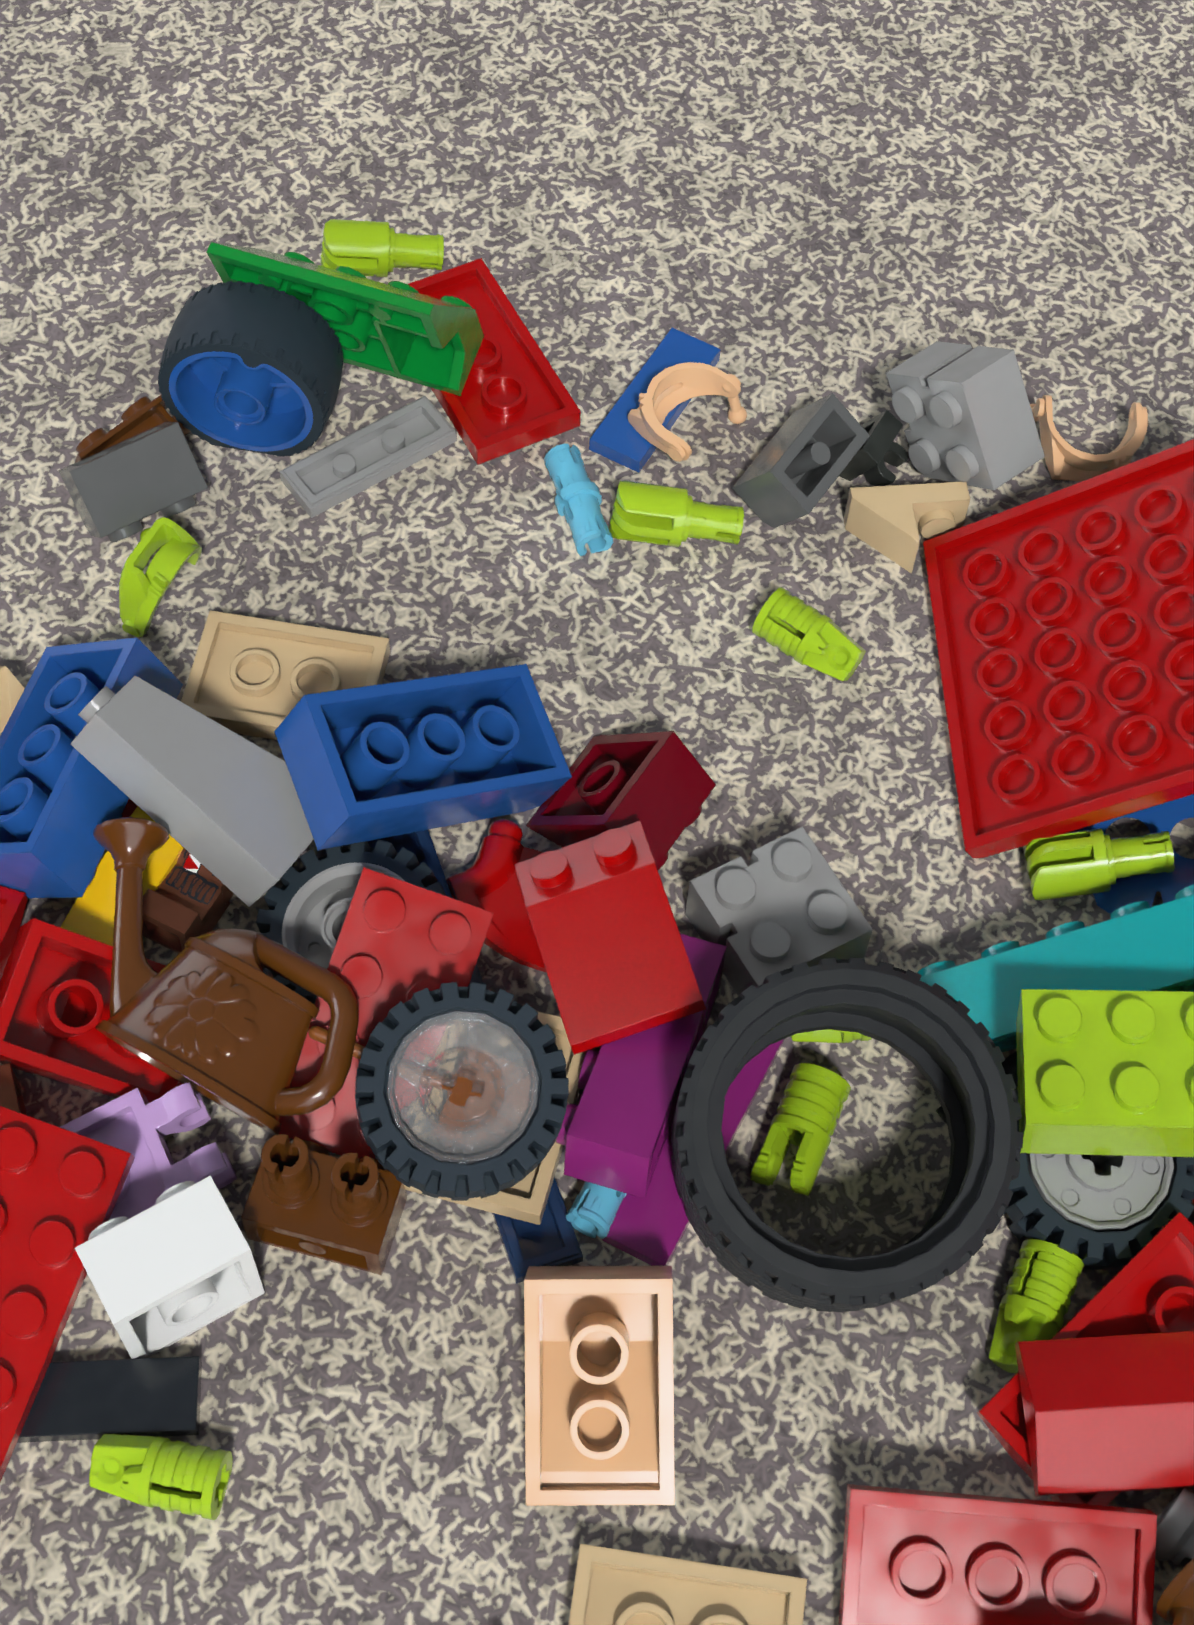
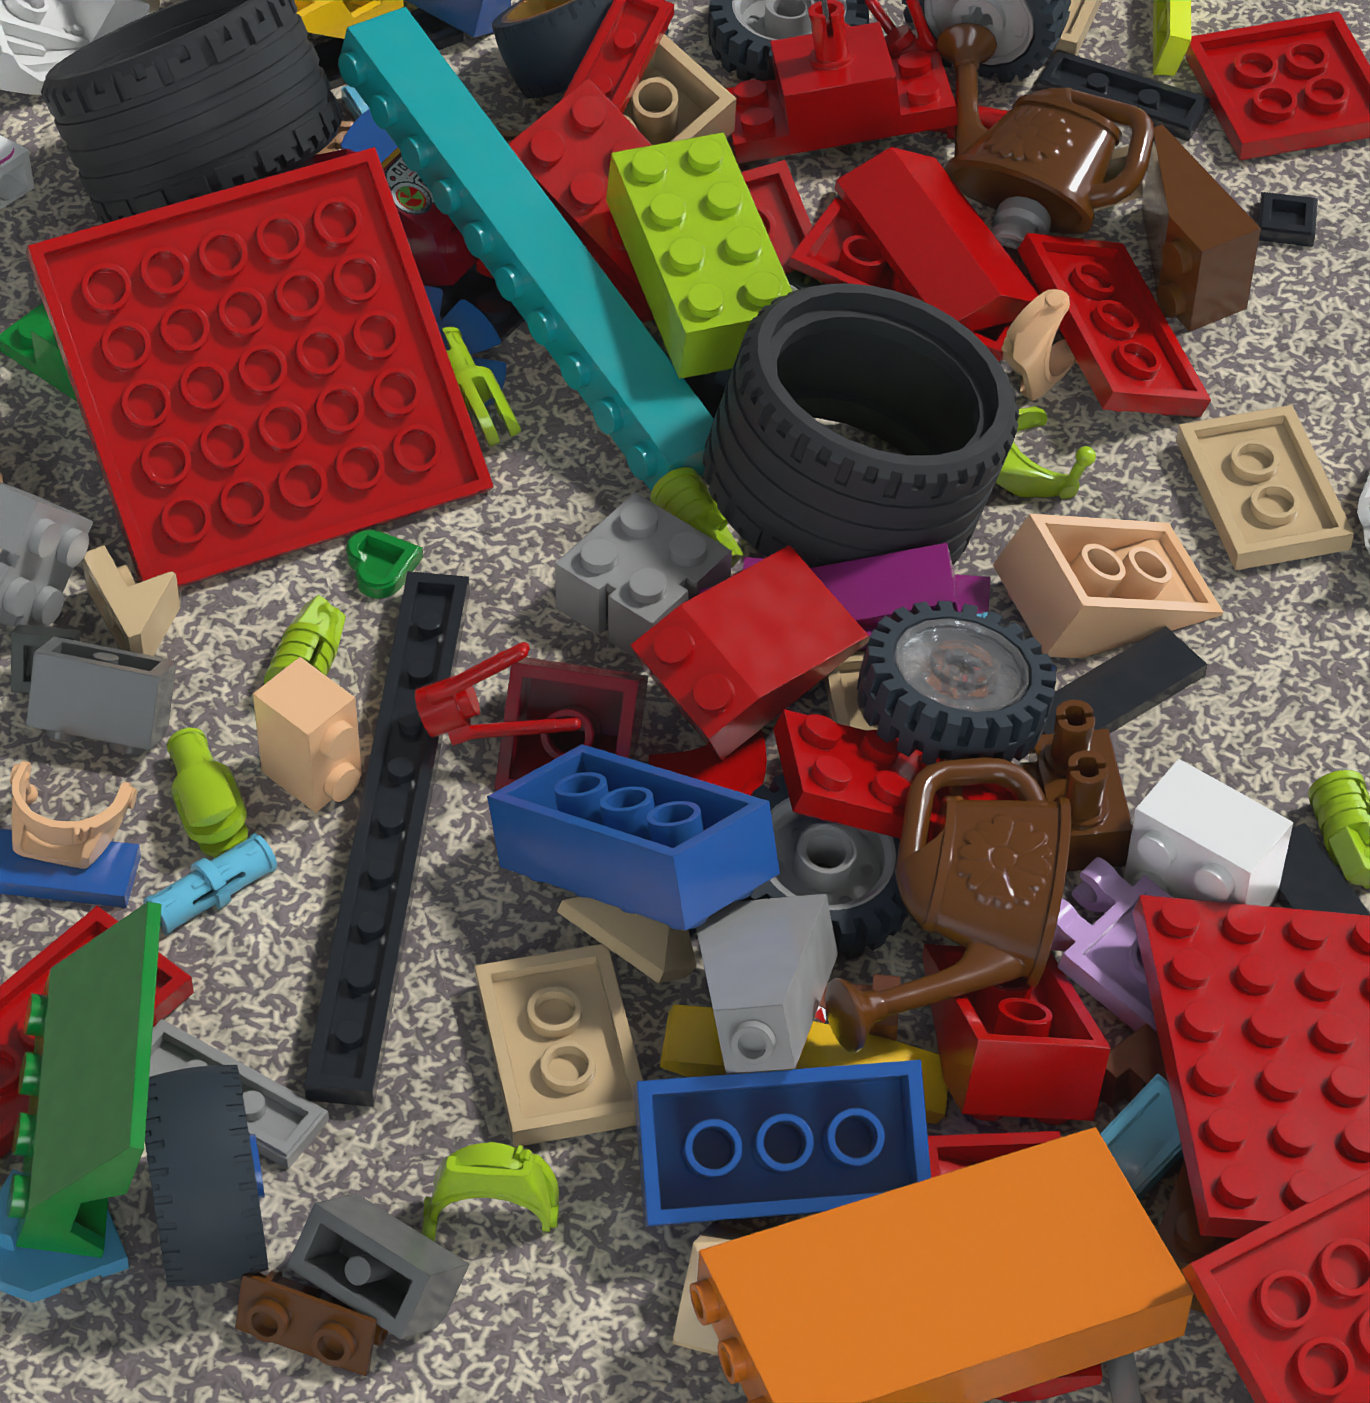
camera: 110 degrees left, 10 degrees down
(461, 1327) = (1133, 681): none -> black tile
(587, 641) = (385, 849): none -> black plate
(662, 694) = (453, 702): none -> red plant
(676, 577) = (308, 735): none -> light nougat brick
(826, 1347) = (1029, 479): none -> lime helmet
(903, 734) = (381, 562): none -> green tile
(967, 1448) = (1030, 347): none -> light nougat helmet

